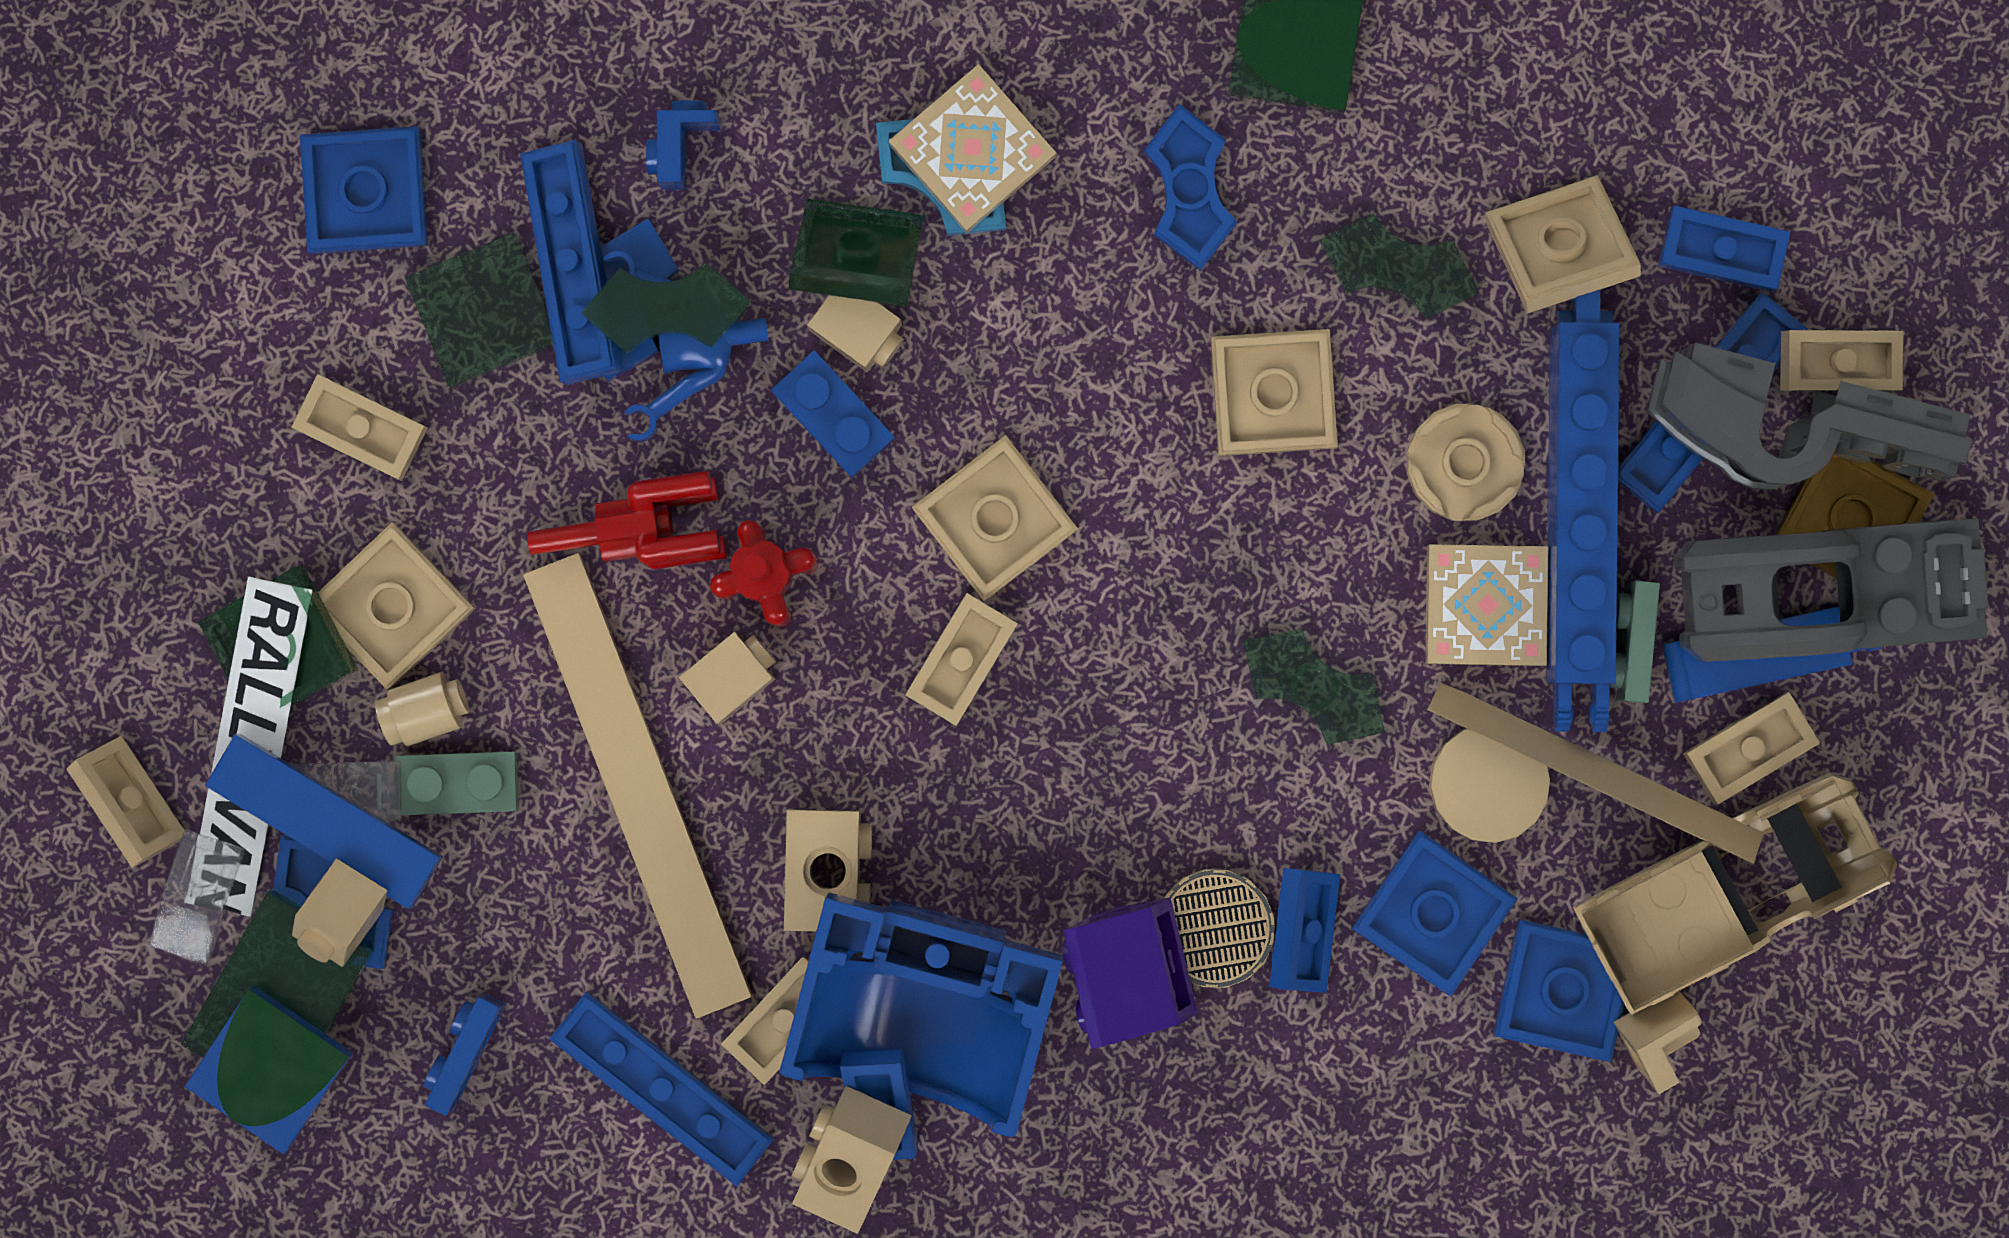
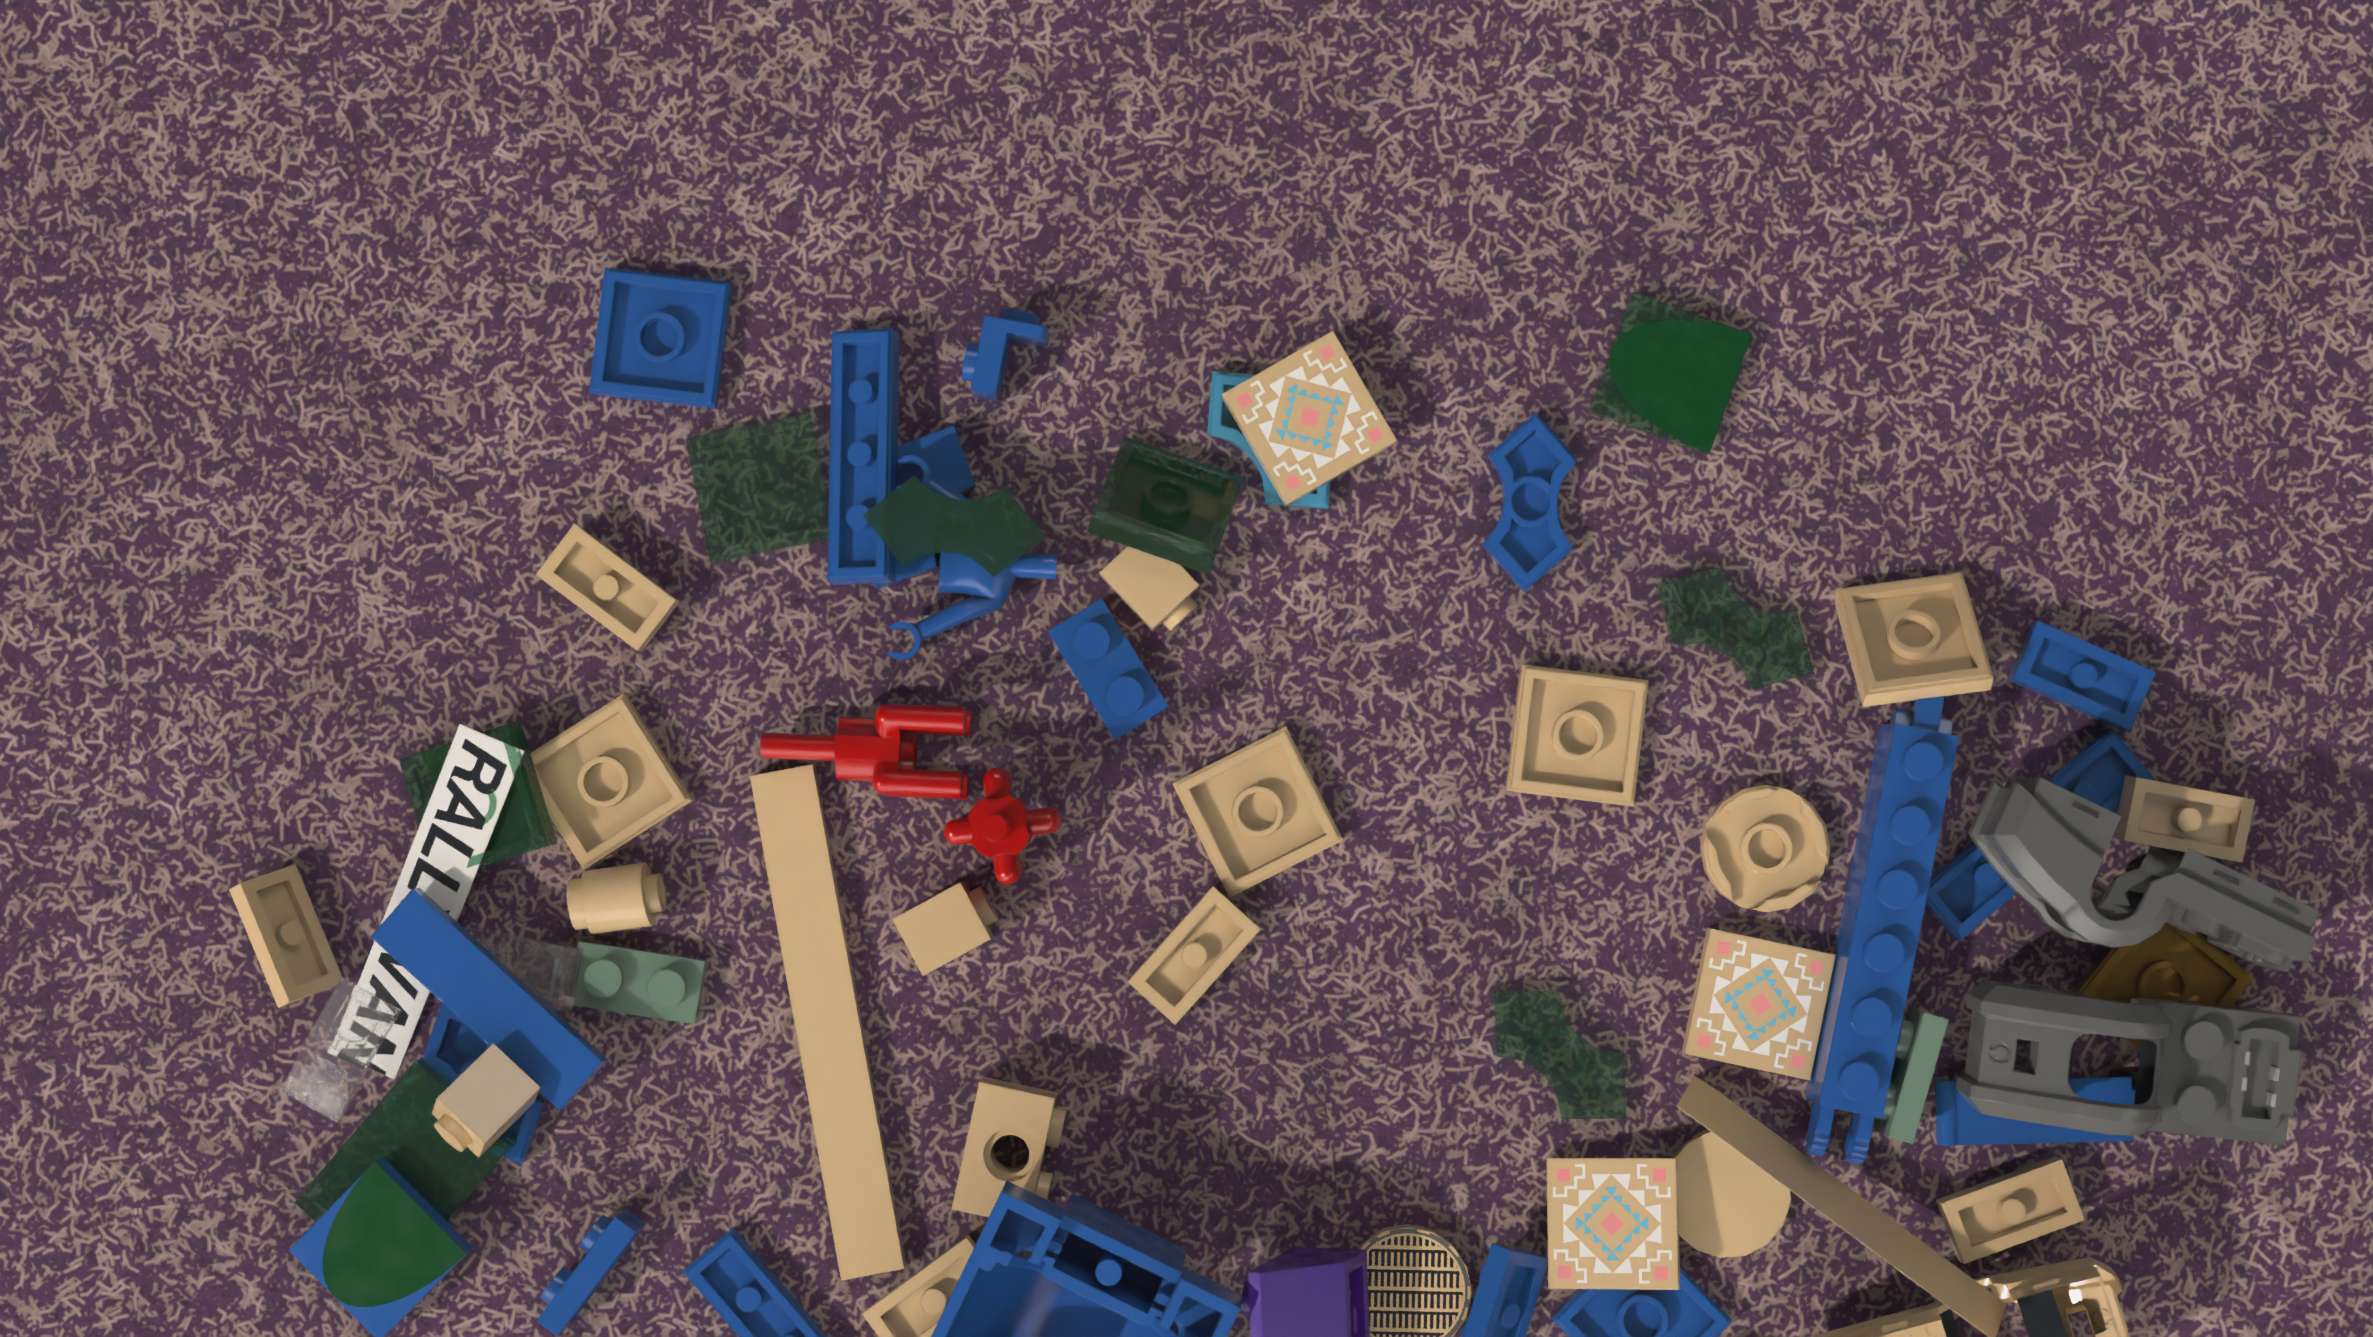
camera: 10 degrees right, 0 degrees up
(1391, 829) = (1613, 1223): none -> tan tile

